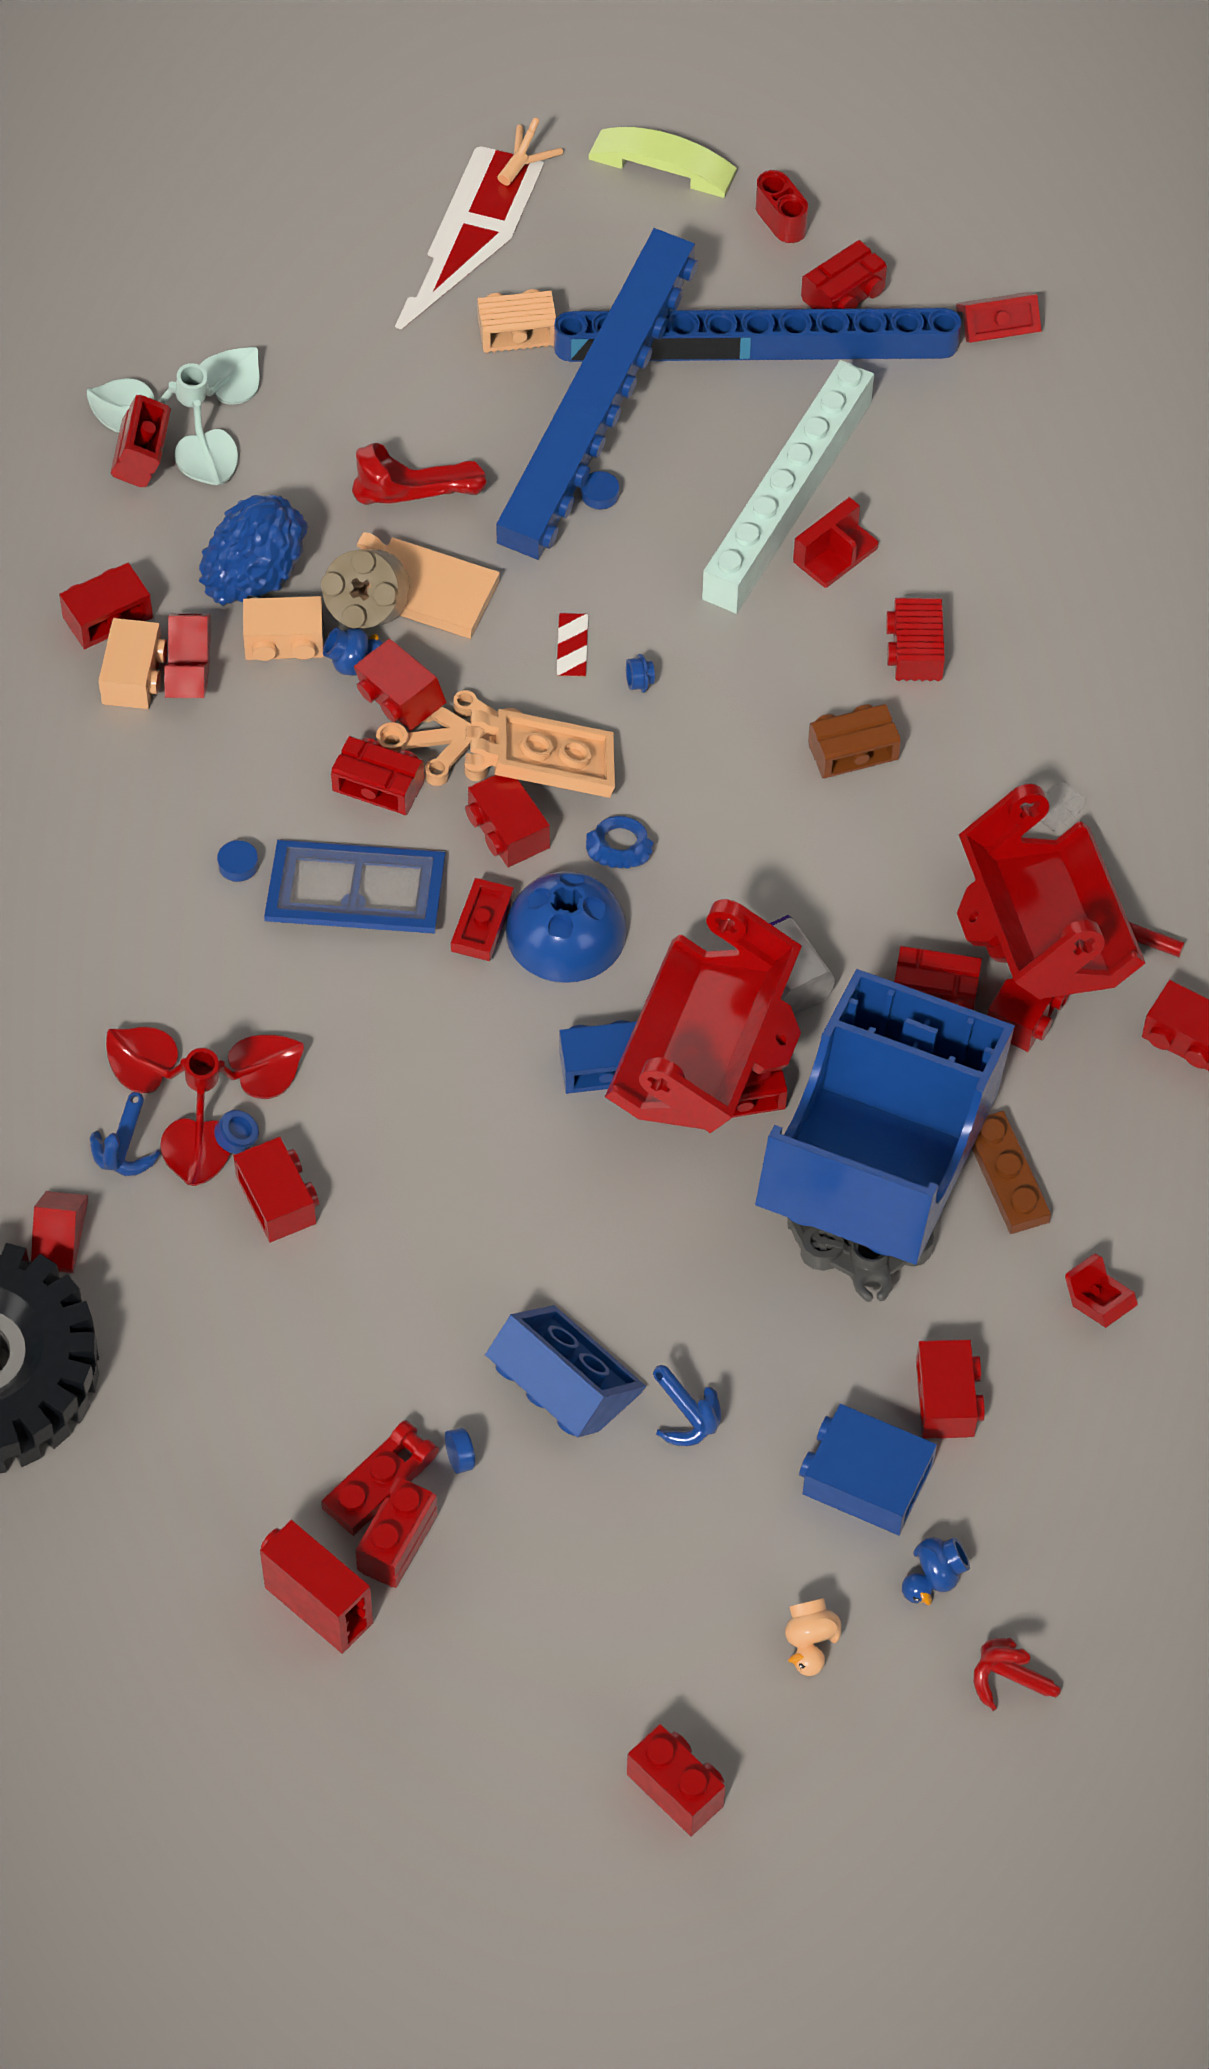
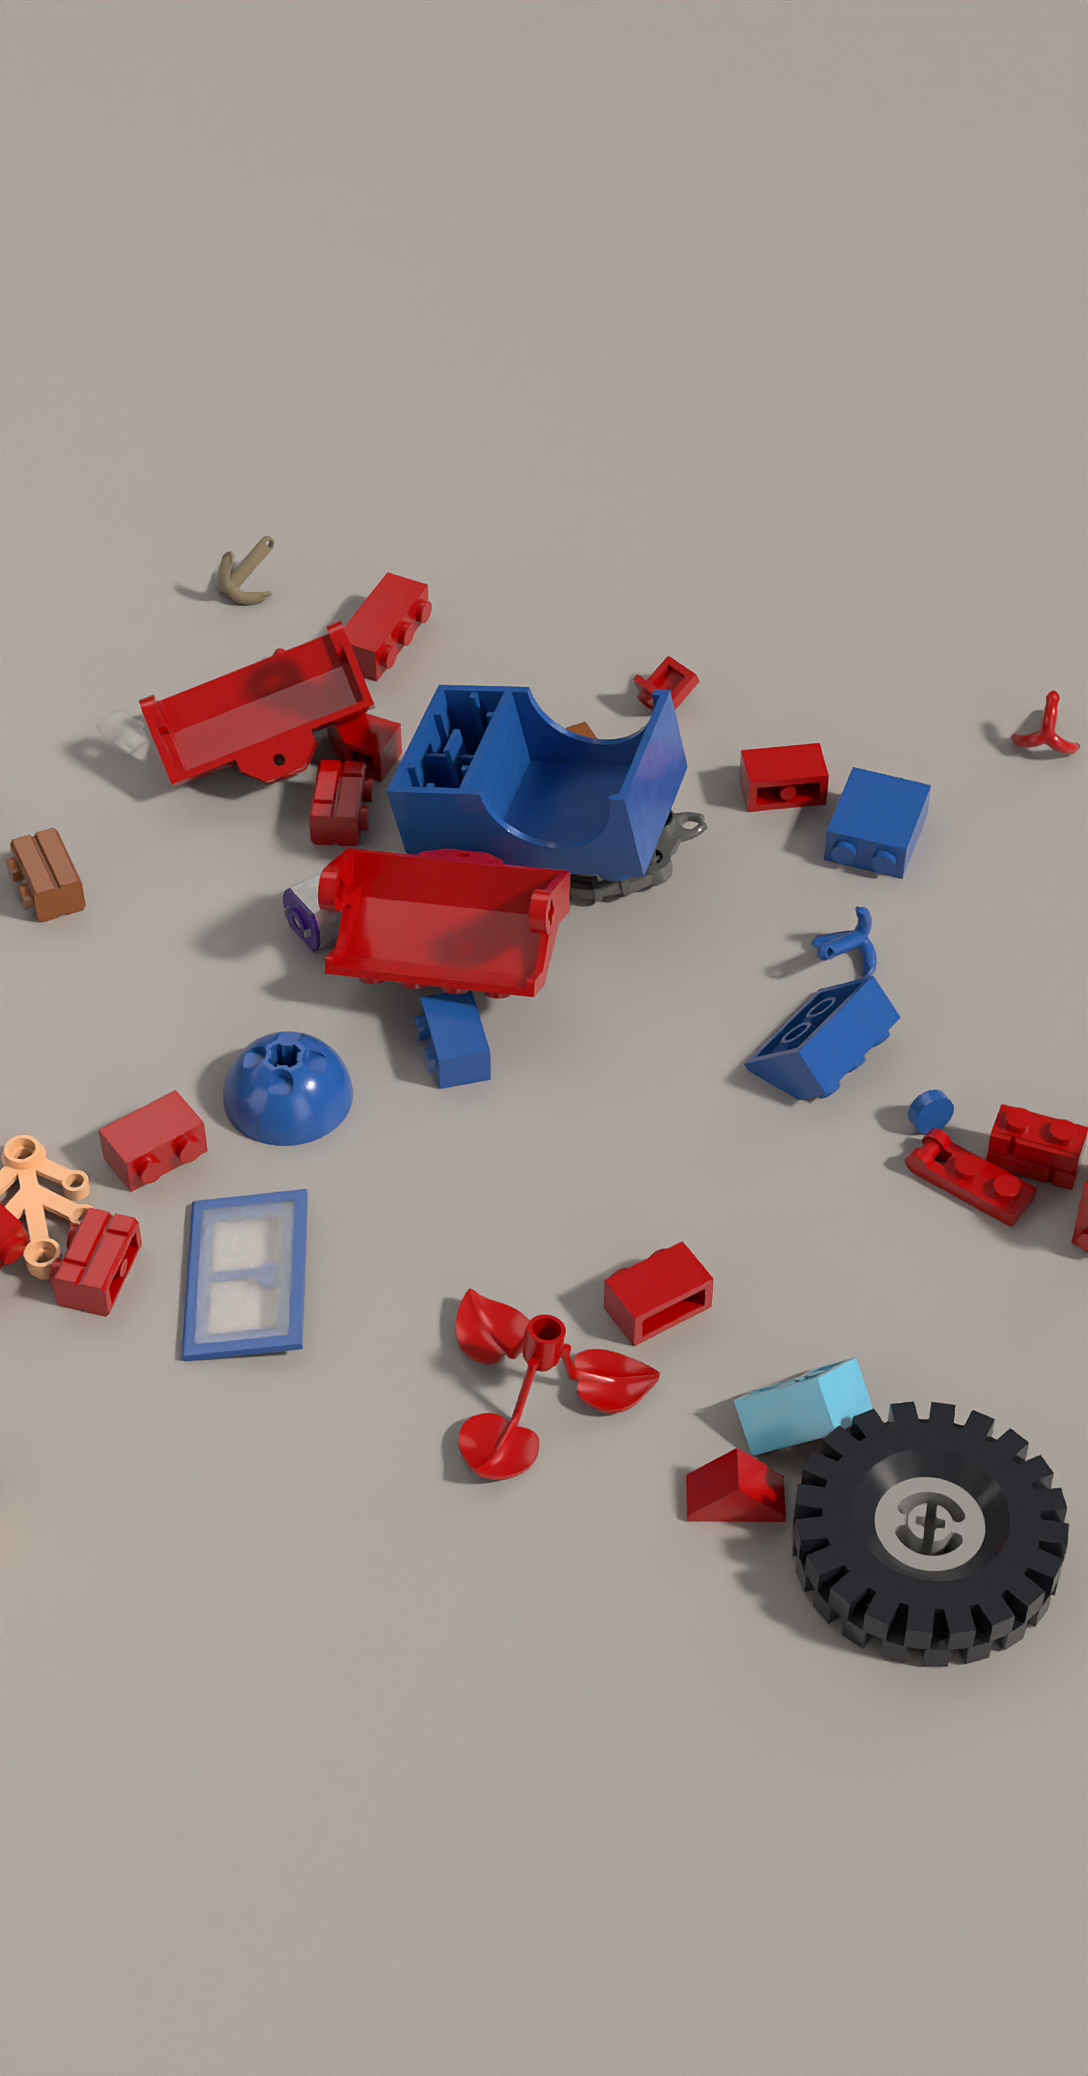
camera: 95 degrees left, 10 degrees down
(117, 1144) = (634, 1435): blue piece -> none
(125, 1292) = (803, 1406): none -> medium azure panel
(236, 1131) = (588, 1339): blue tile -> none
(237, 861) = (215, 1389): blue tile -> none
(482, 919) = (287, 1154): red plate -> none
(542, 751) = (71, 1107): light nougat tile -> none
(601, 852) = (185, 1070): blue piece -> none
(811, 1625) = (1048, 850): light nougat animal -> none
(942, 1569) = (963, 771): blue animal -> none

